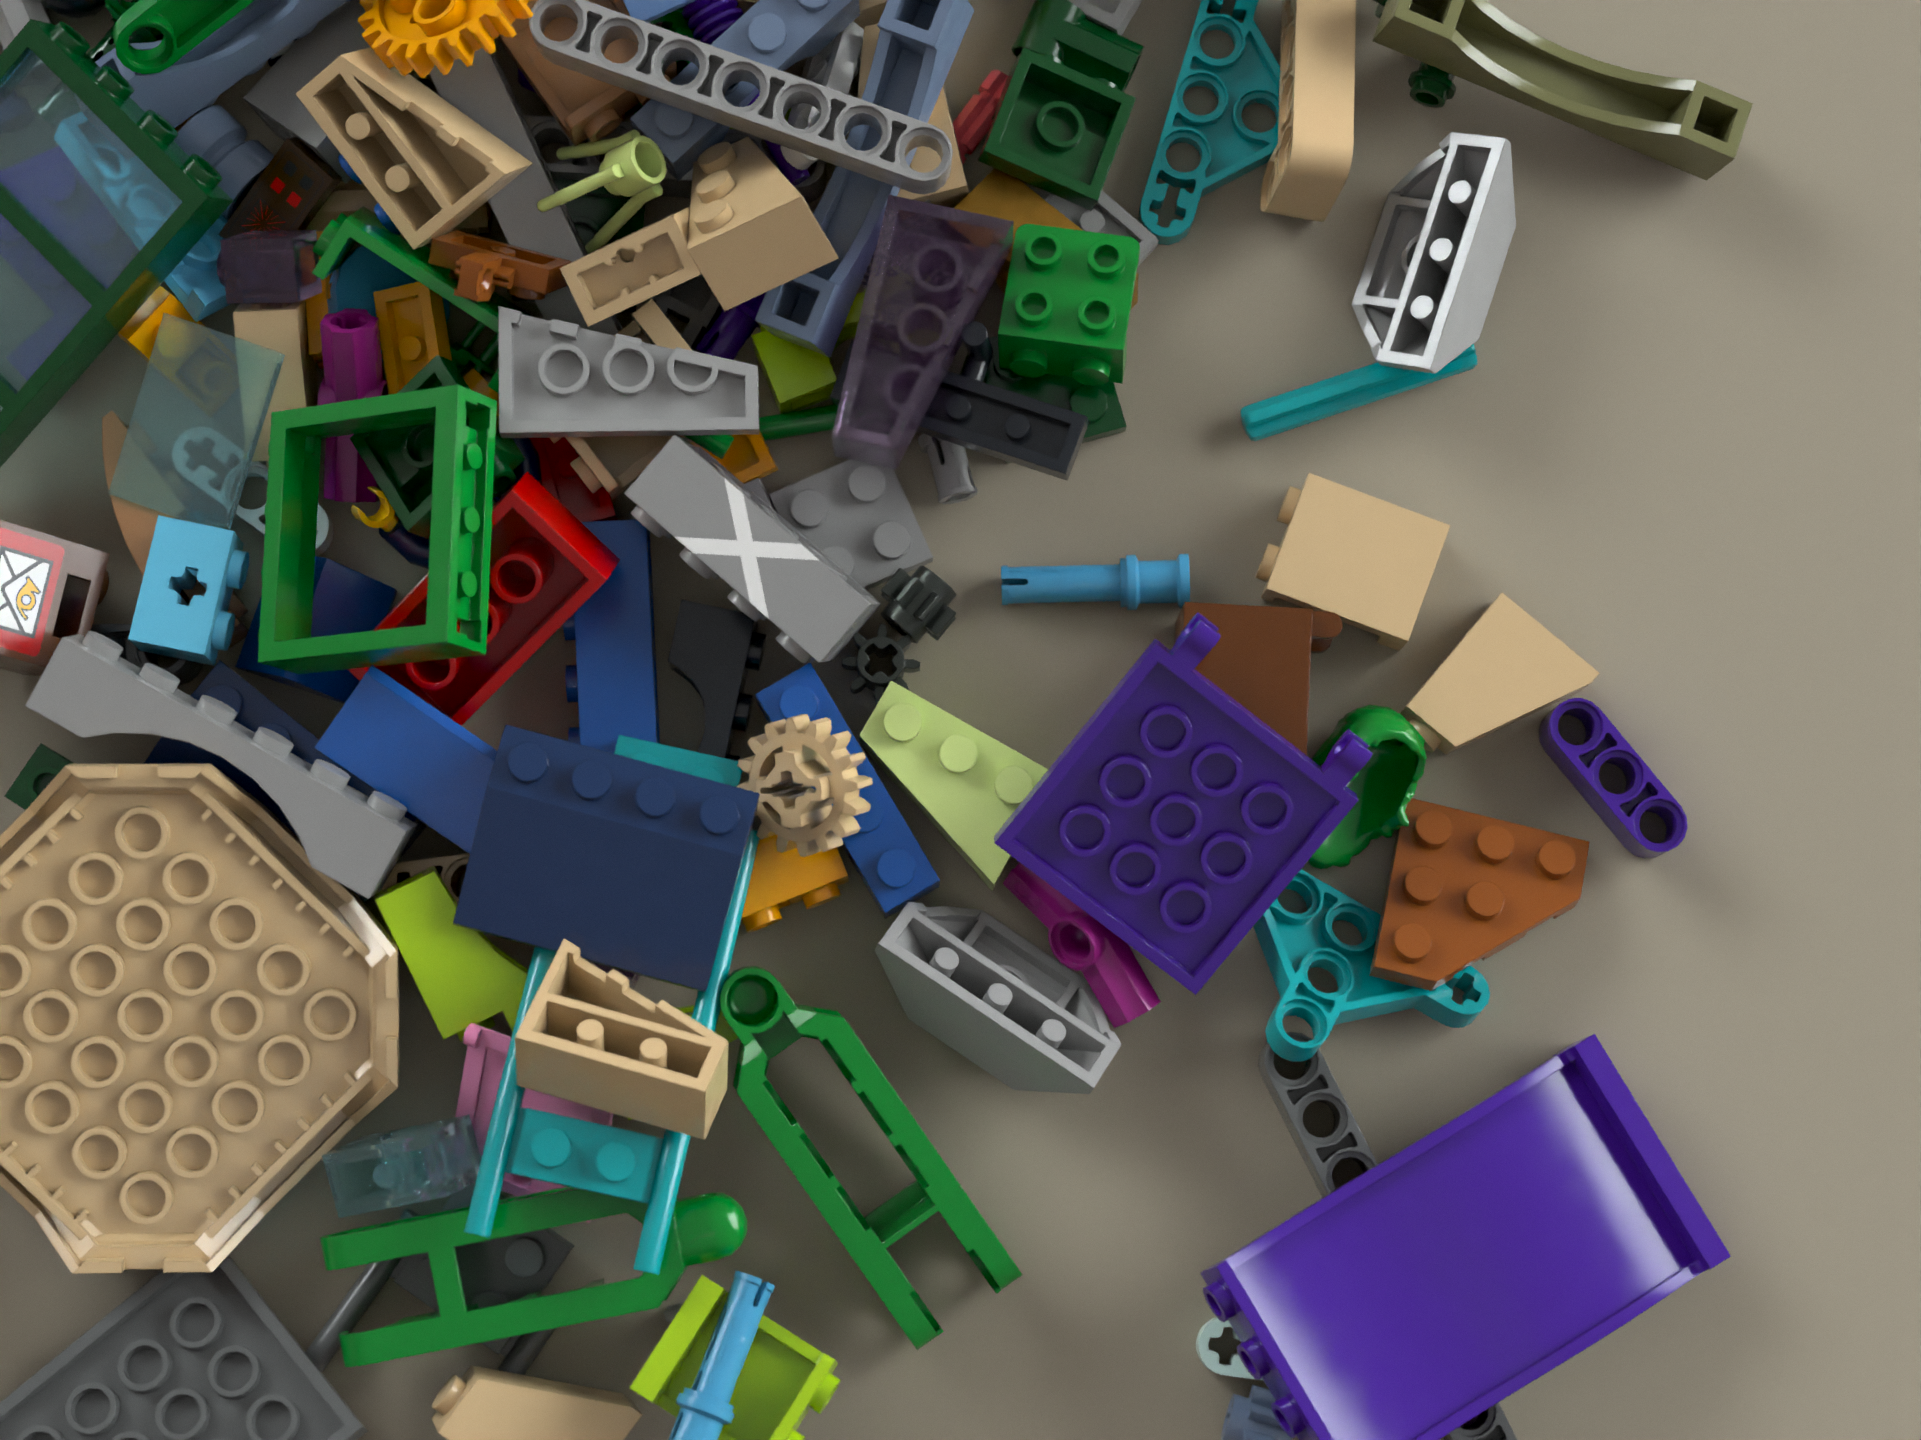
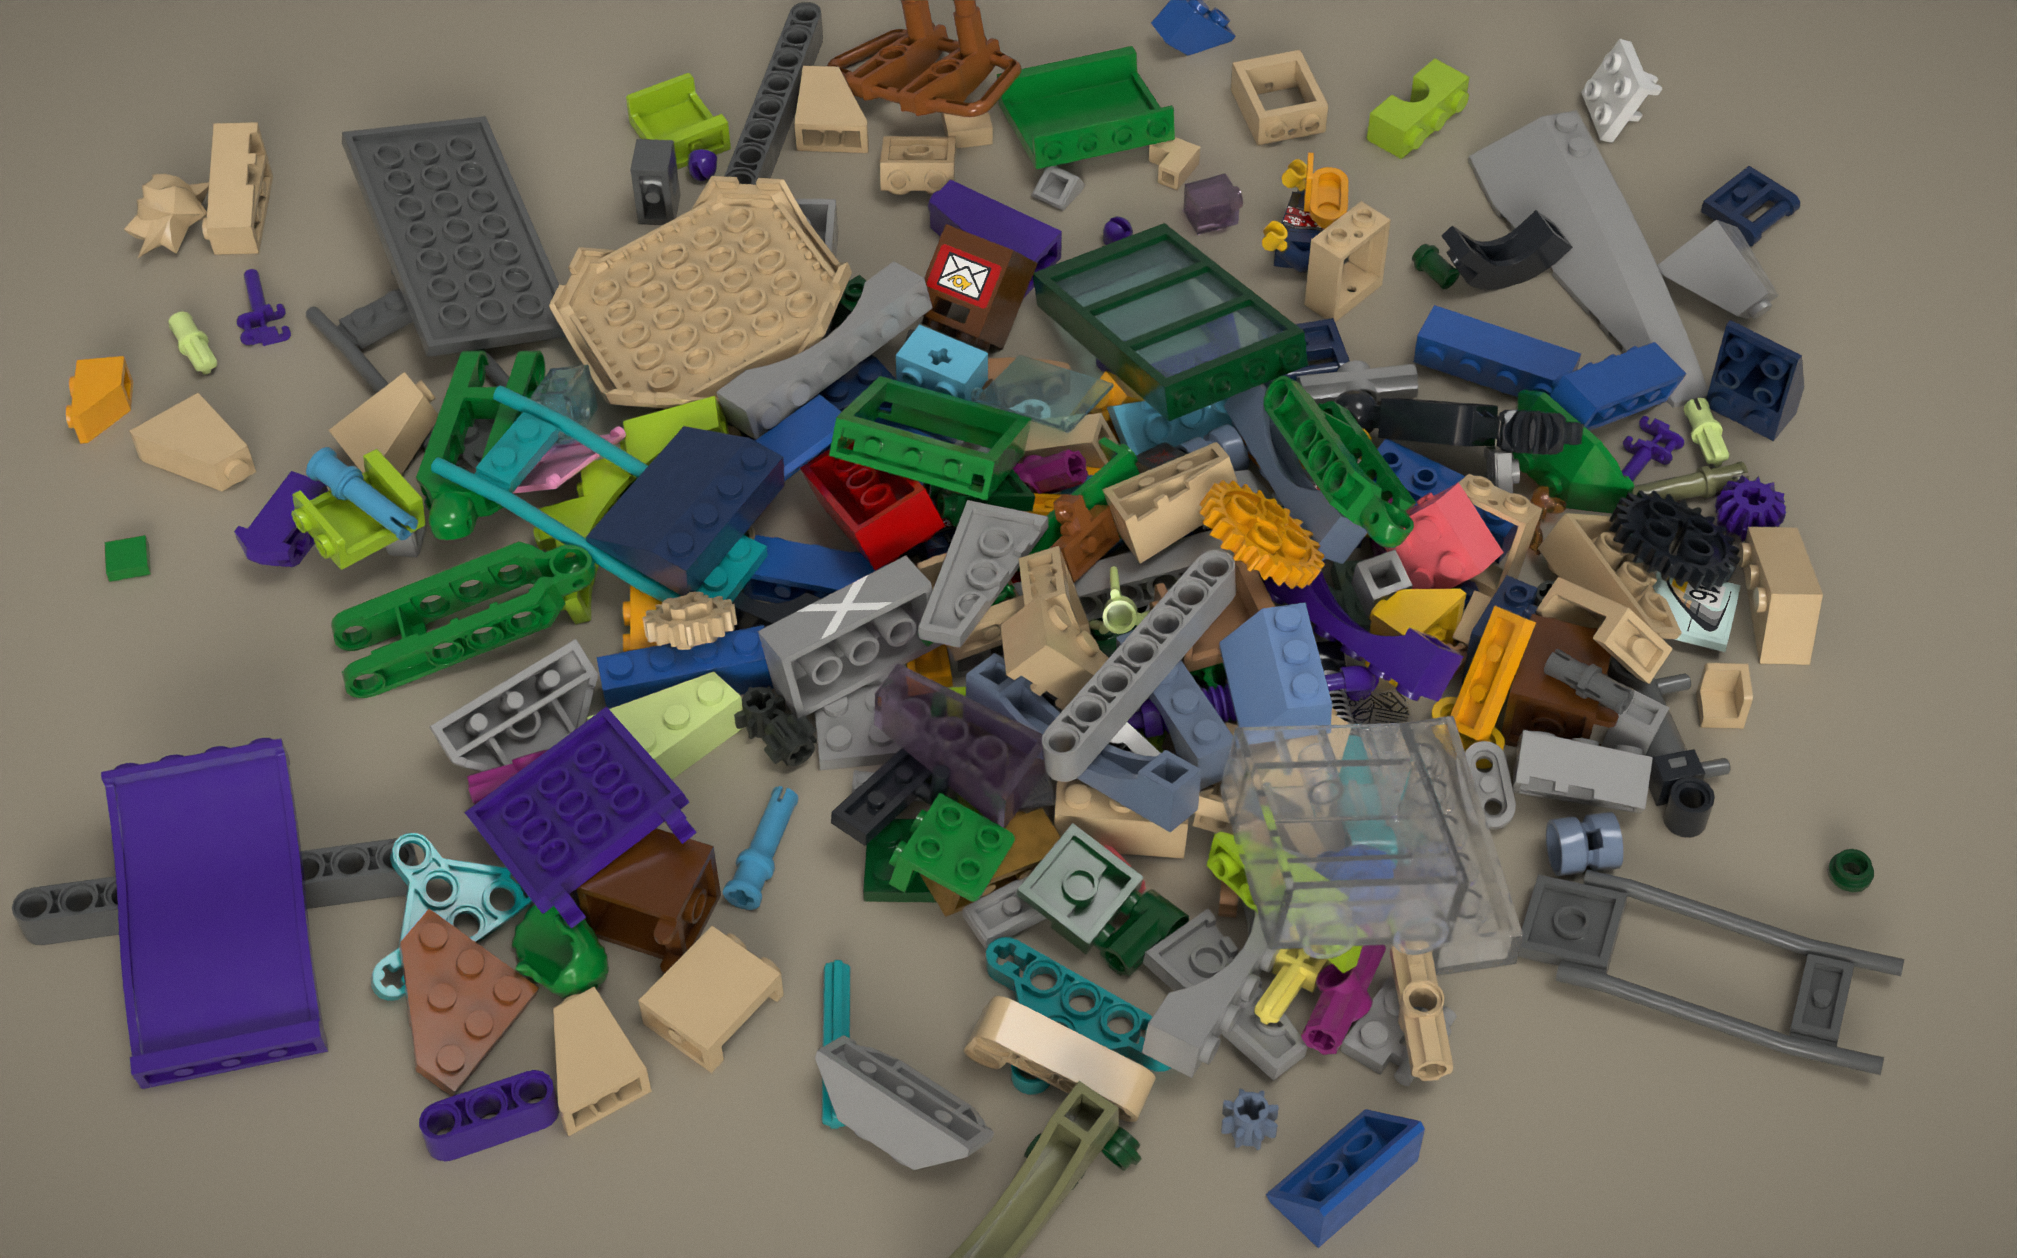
camera: 115 degrees right, 30 degrees down
(269, 266) = (1132, 430): clear purple brick -> none
(618, 1050) = (570, 469): tan wedge -> none

